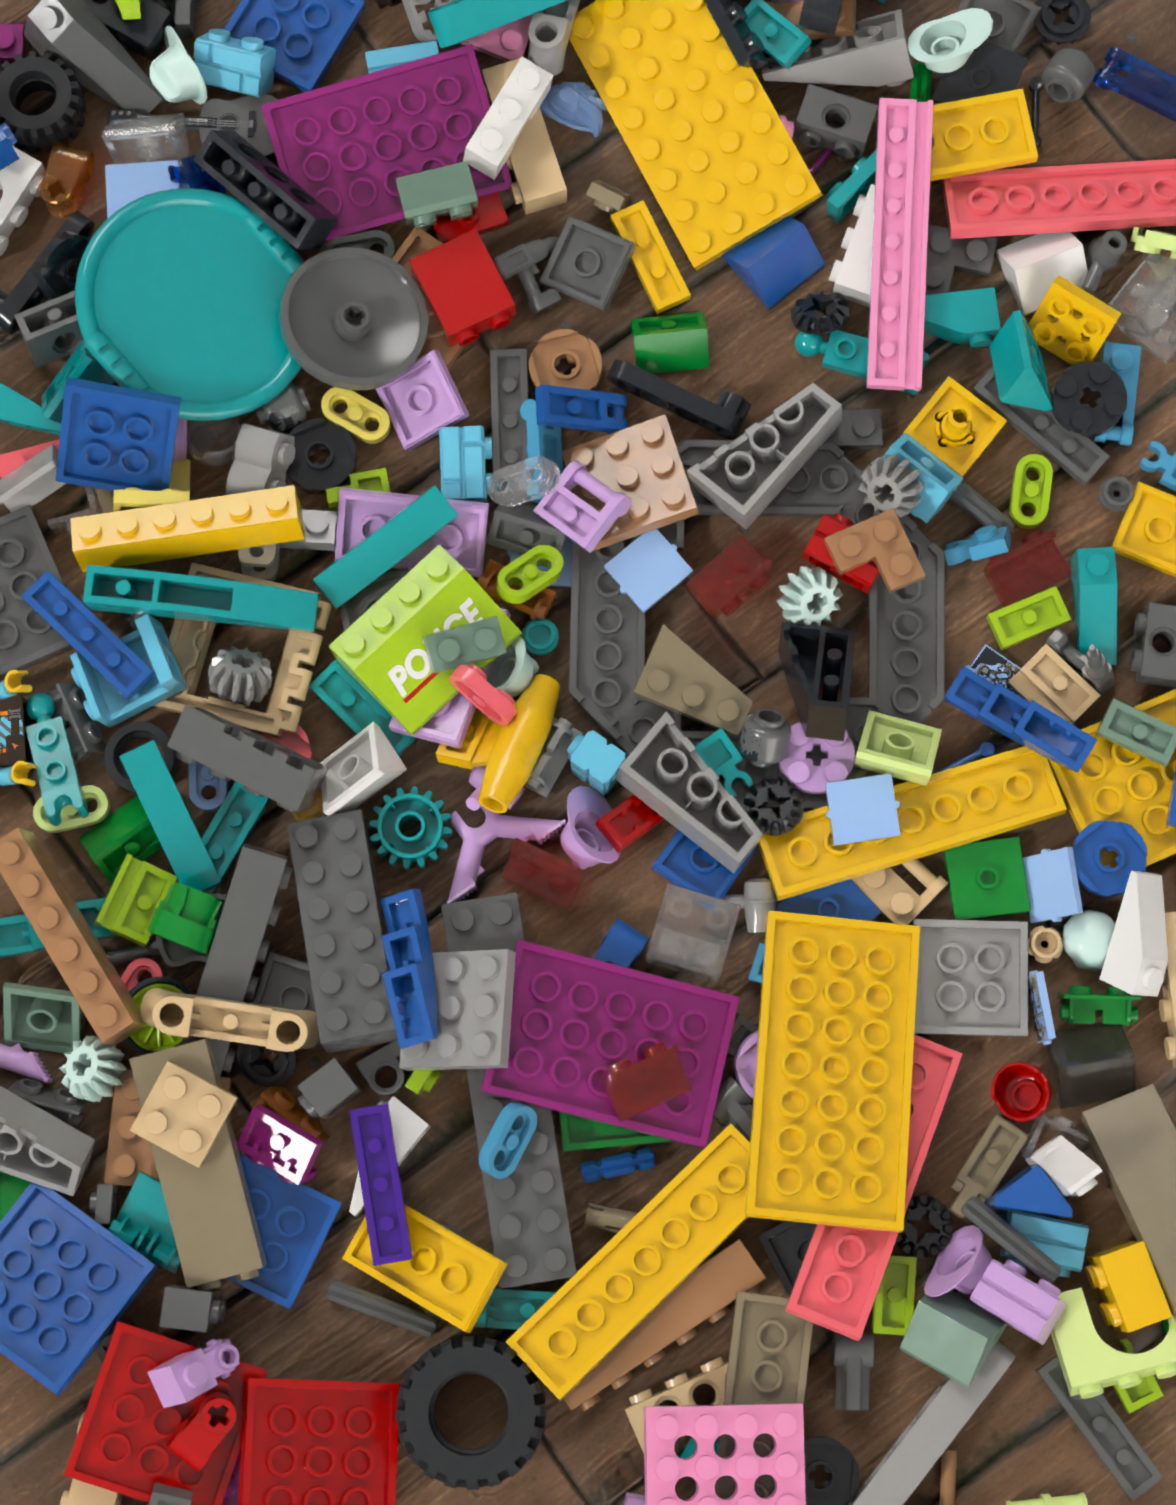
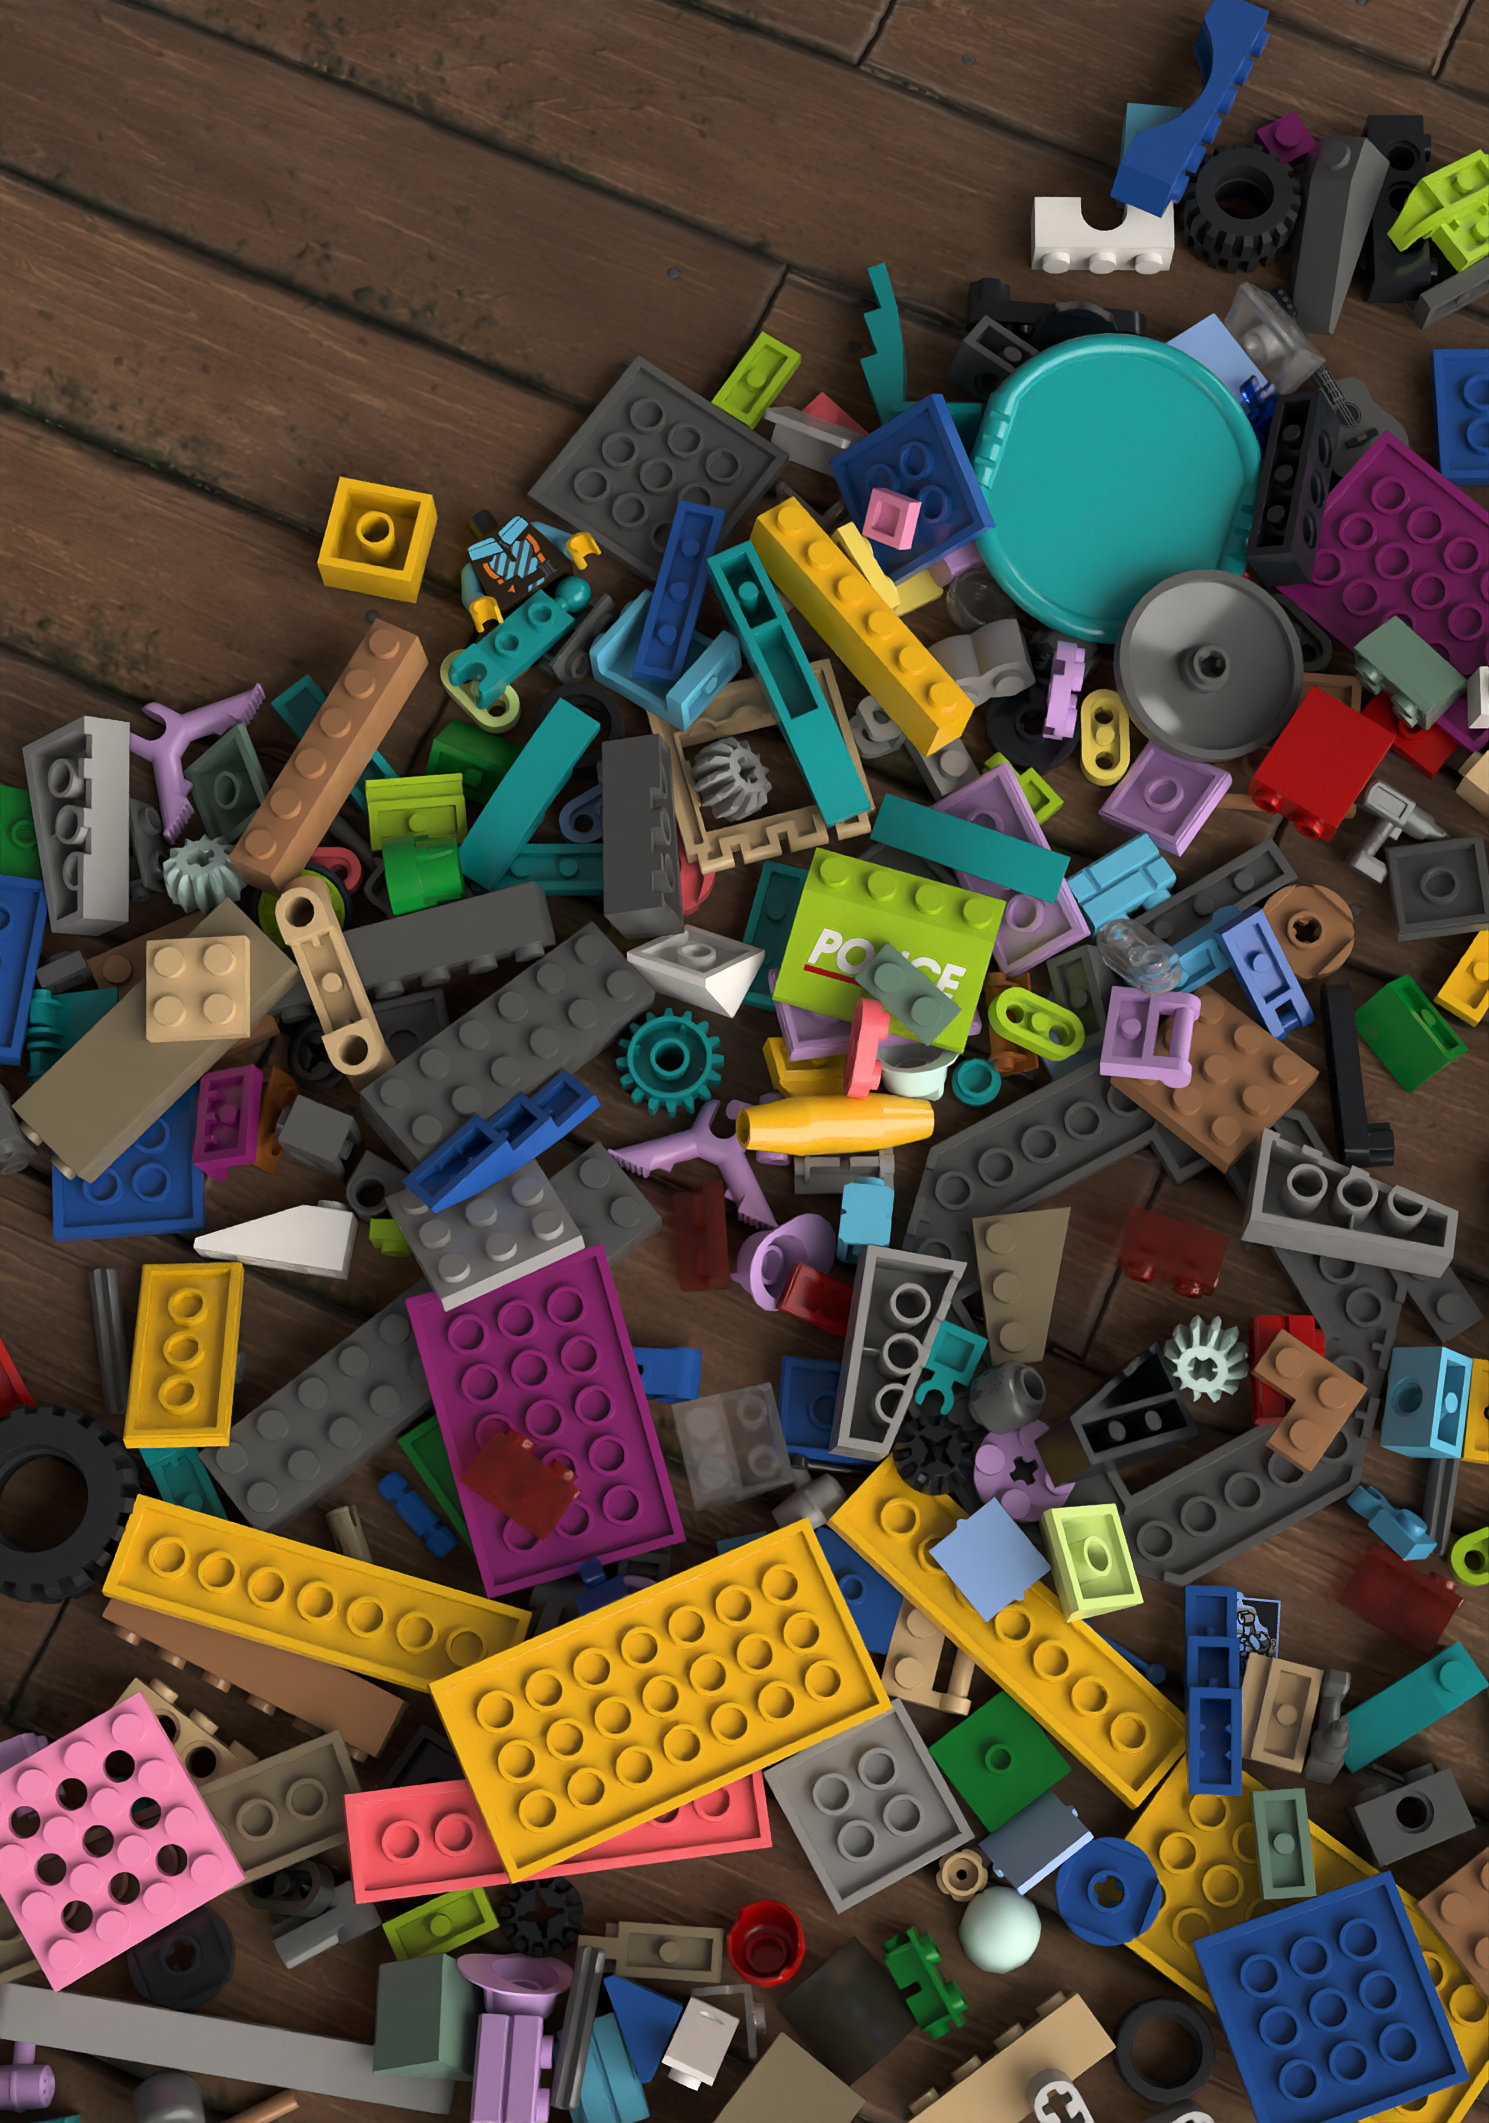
camera: 60 degrees right, 5 degrees down
(66, 173) = (1178, 285): clear orange piece -> none
(129, 462) = (891, 518): none -> bright pink plate
(176, 73) = (1362, 327): light aqua piece -> none
(235, 63) = (1417, 379): medium azure brick -> none
(310, 419) = (1065, 676): none -> lavender plate
(381, 1184) = (241, 1253): dark purple plate -> none
(507, 1140) = (367, 1363): dark azure plate -> none
(648, 569) = (1126, 1156): light blue piece -> none
(727, 896) = (803, 1463): none -> black hinge
(745, 1069) = (600, 1589): none -> clear blue tile
(822, 1378) = (294, 1891): none -> pearl dark grey plate
(891, 485) = (1396, 1375): light grey gear -> none
(1028, 618) = (1342, 1634): lime plate -> none
(1040, 1008) = (879, 1909): light blue piece -> none
(1139, 939) = (1028, 1985): white slope -> none

